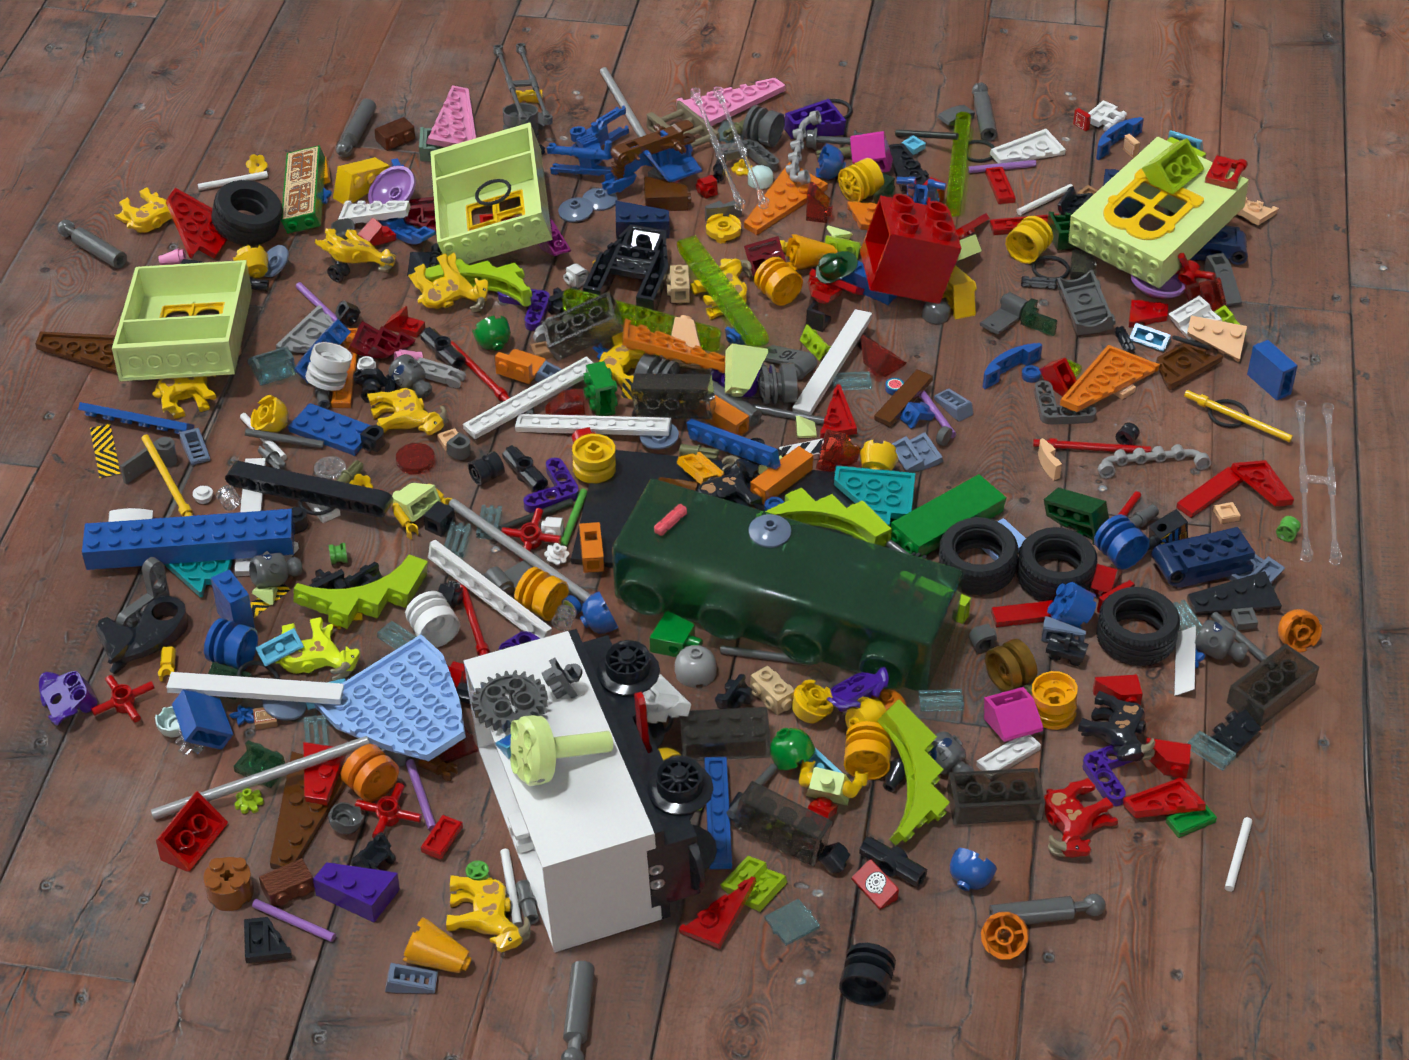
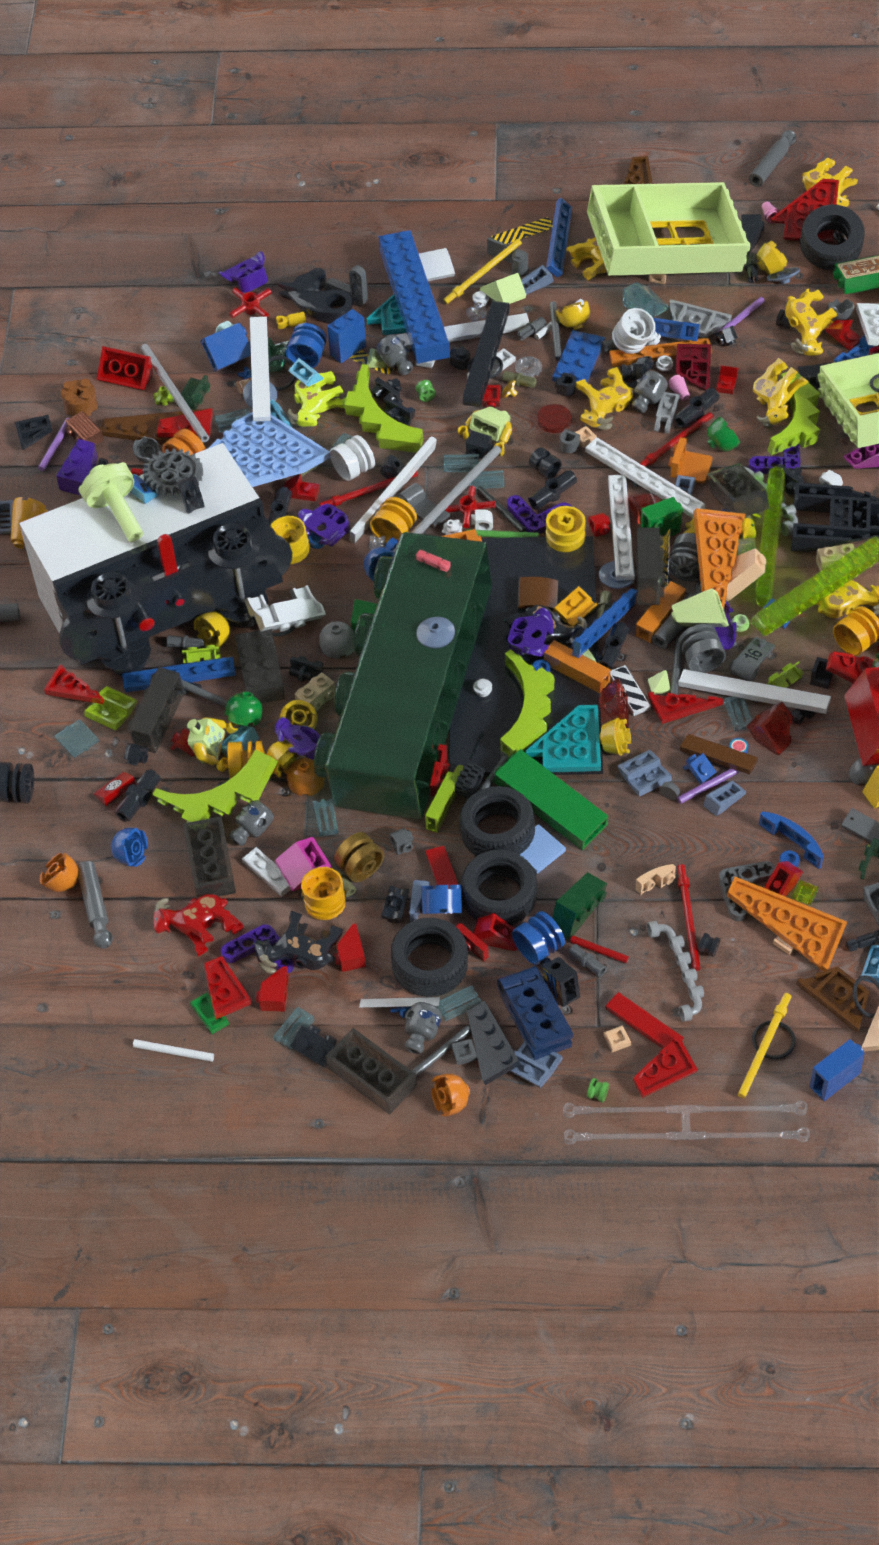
camera: 85 degrees right, 10 degrees up
(200, 469) = (506, 289): none -> yellowish green slope
(731, 490) = (520, 636): none -> dark purple piece

